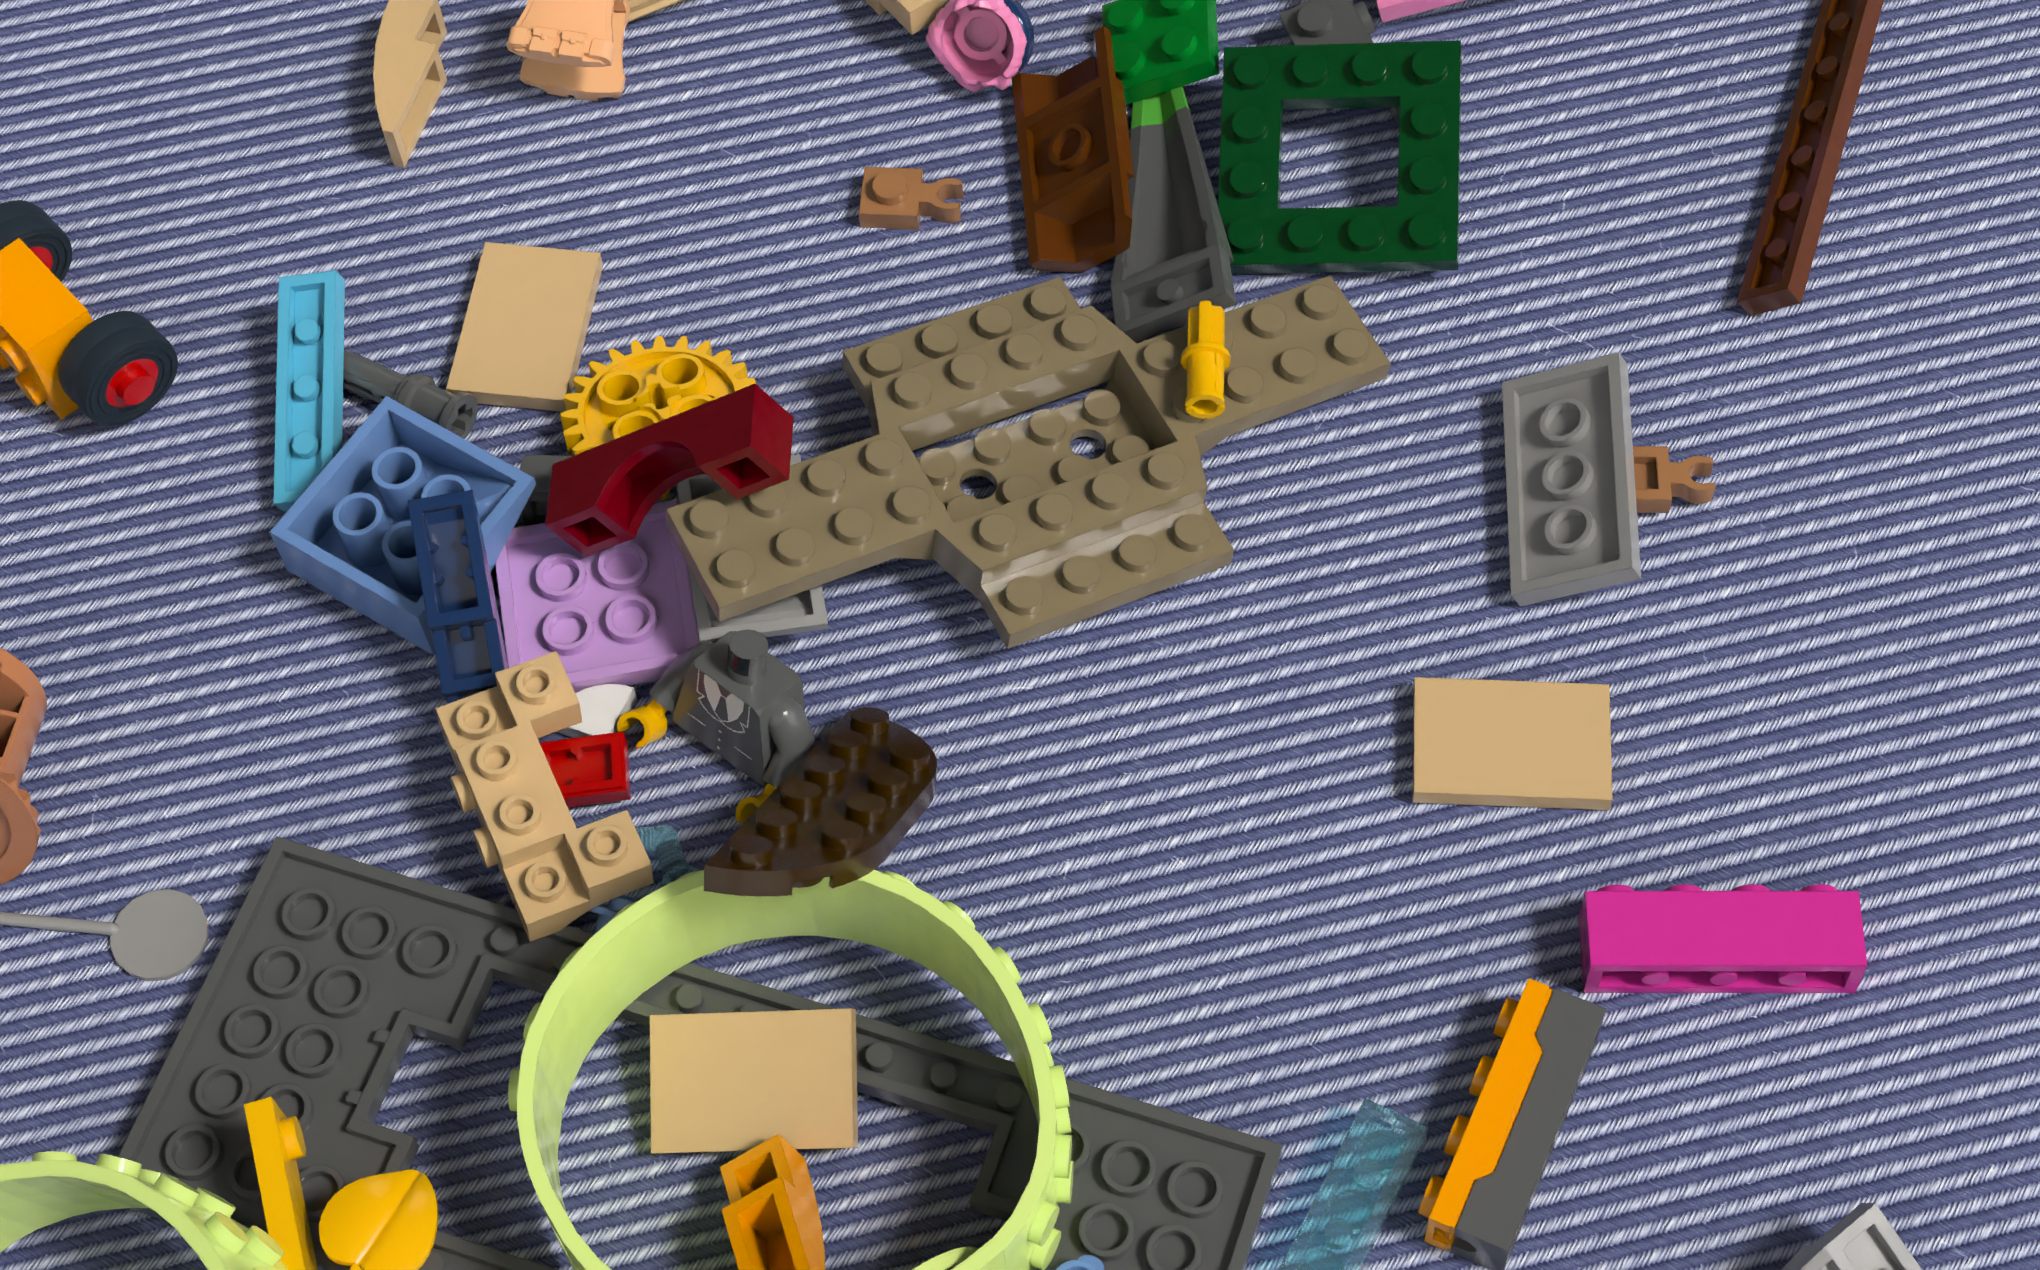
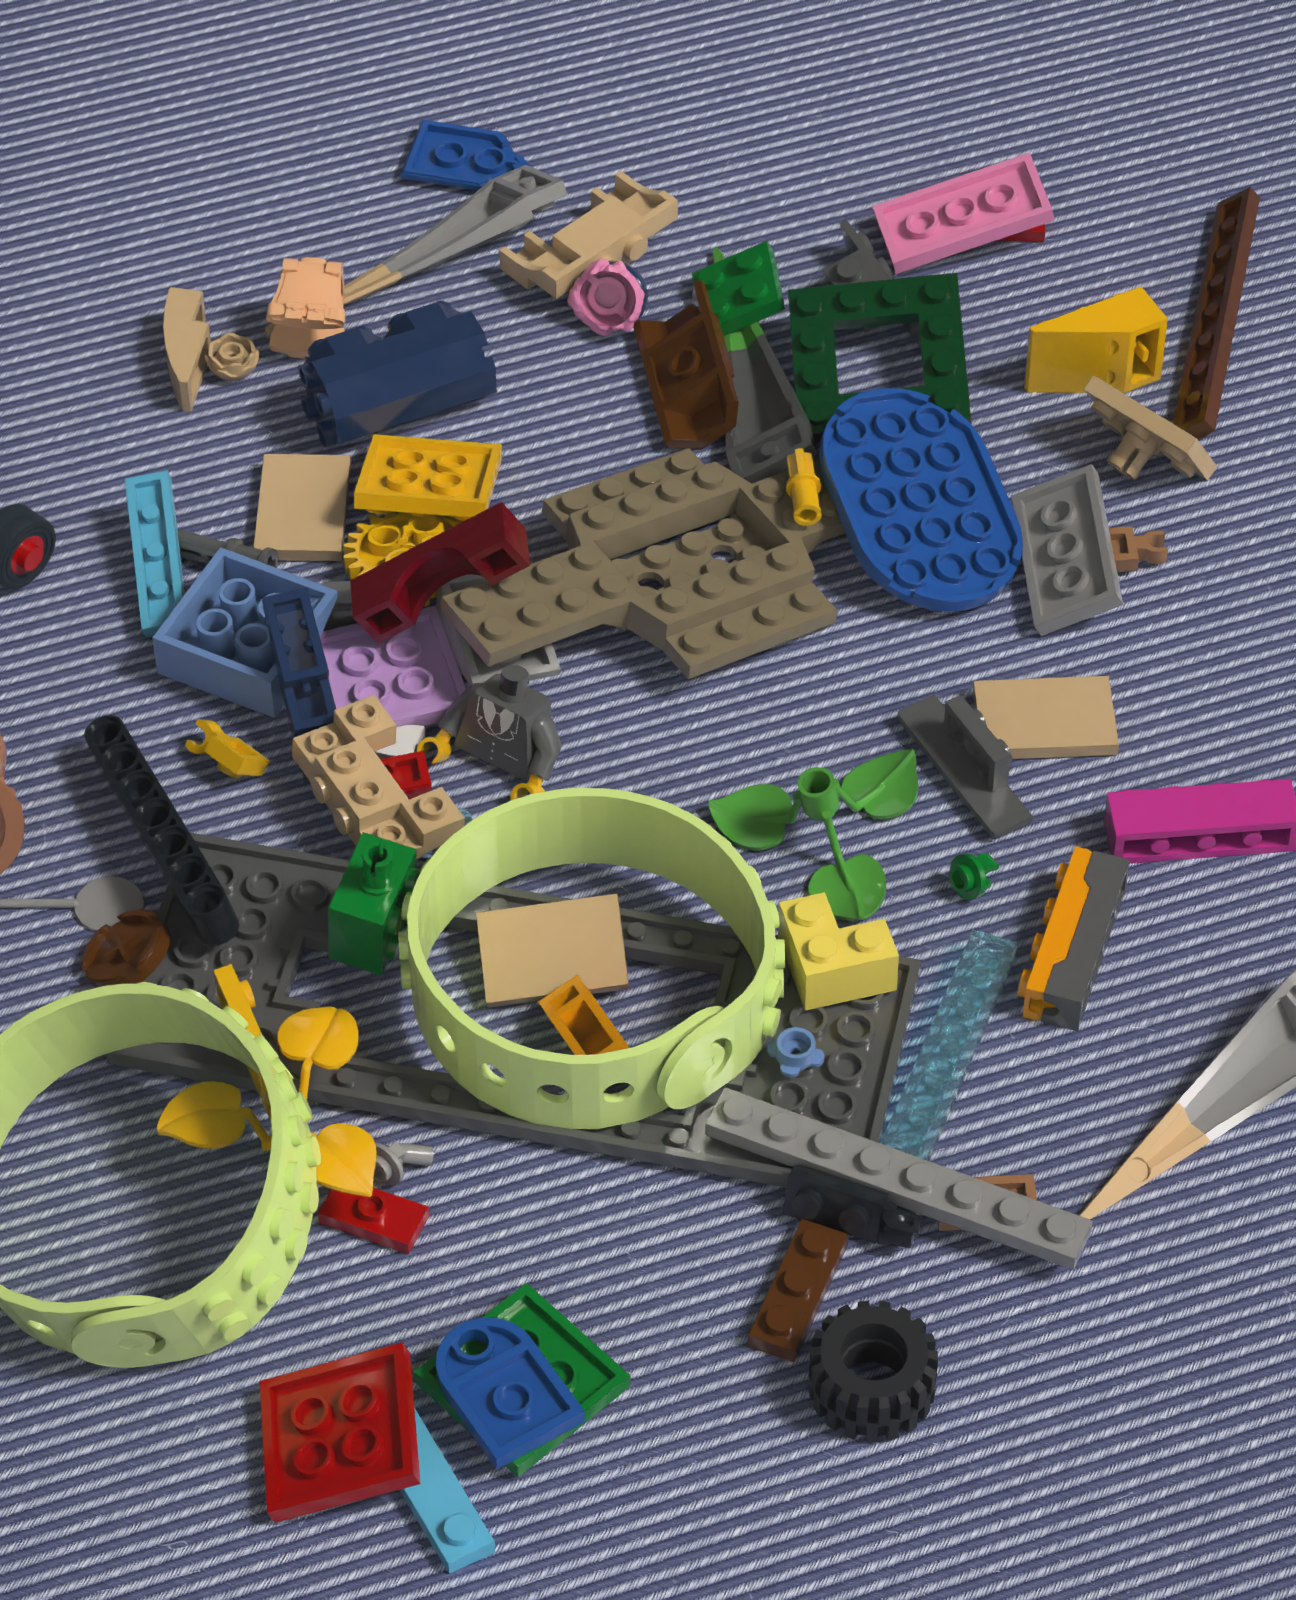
camera: 10 degrees left, 10 degrees down
(157, 1026) = (126, 950): none -> reddish brown tile
(234, 843) = (162, 830): none -> black beam
(360, 711) = (233, 754): none -> yellow plate
(467, 91) = (232, 357): none -> tan plate
(487, 994) = (369, 904): none -> green brick
(654, 149) = (375, 382): none -> dark blue brick
(695, 299) = (427, 477): none -> yellow plate
(833, 812) = (591, 762): dark brown plate -> none
(899, 197) = (562, 408): medium nougat plate -> none
(1079, 867) = (883, 787): none -> bright green plant
(1150, 1153) = (835, 962): none -> light yellow brick
(1370, 388) = (920, 500): none -> blue plate
(1374, 1003) = (969, 874): none -> green plate
(1390, 811) = (968, 759): none -> dark grey bracket
(1650, 162) = (1111, 339): none -> yellow slope
(1699, 307) = (1145, 435): none -> tan plate

